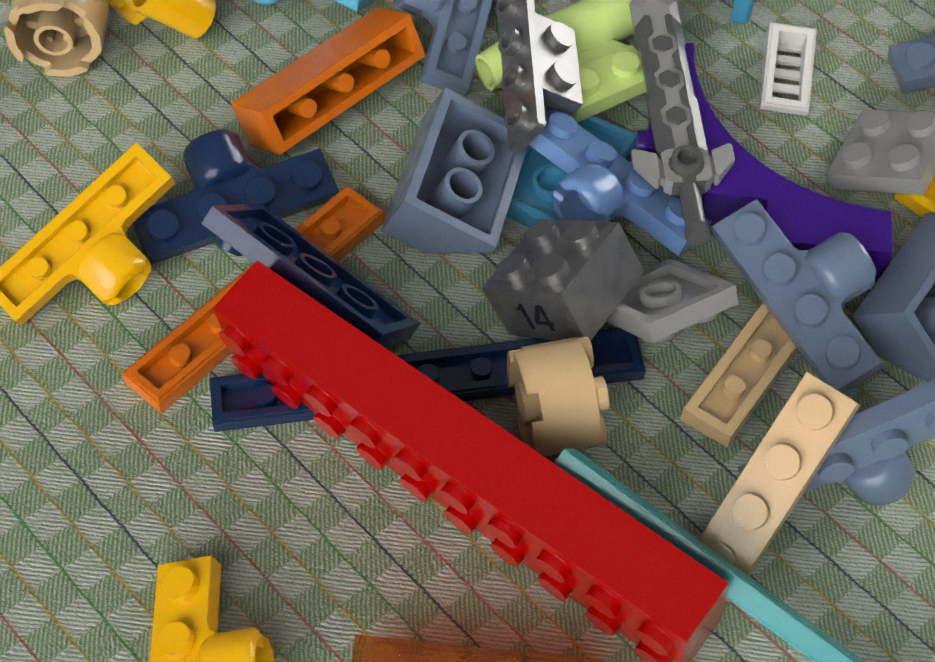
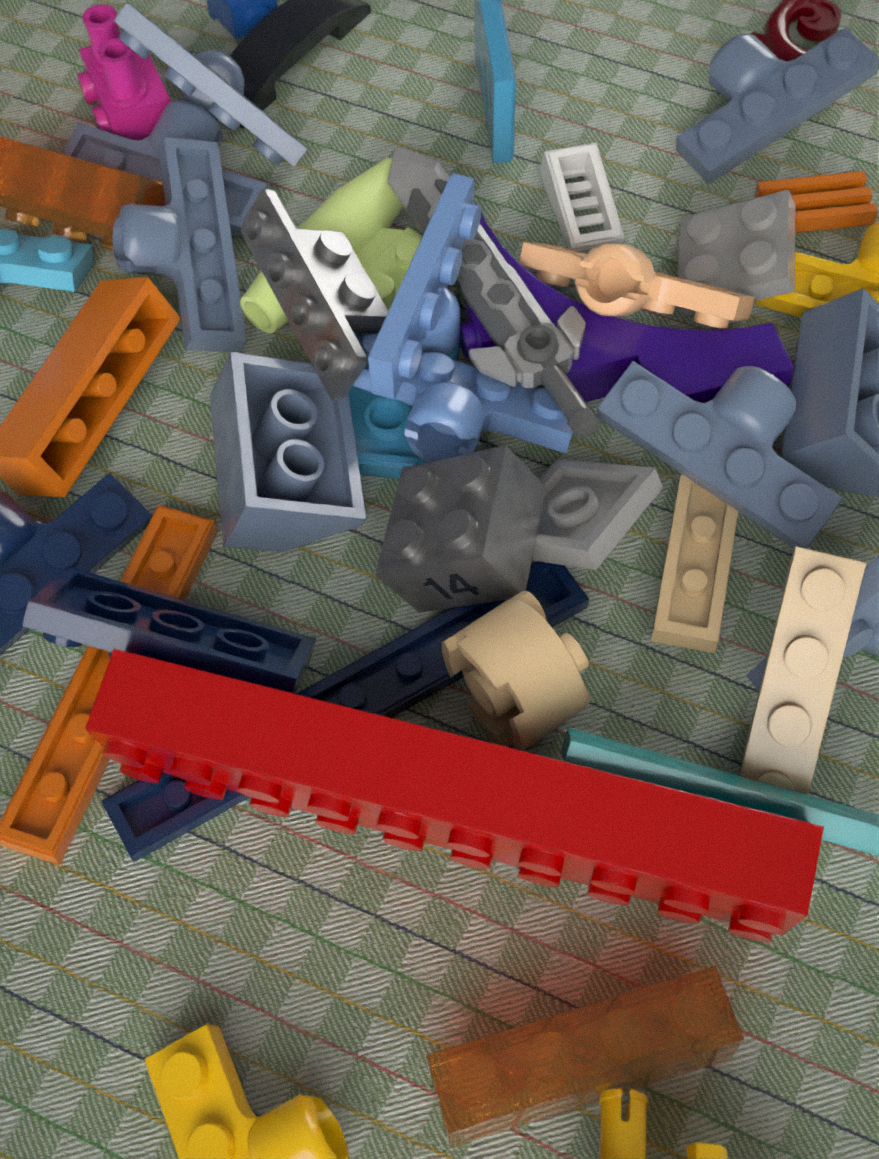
camera: 20 degrees left, 5 degrees up
(609, 100) = (424, 310): none -> medium blue plate
(780, 136) = (622, 281): none -> light nougat plate

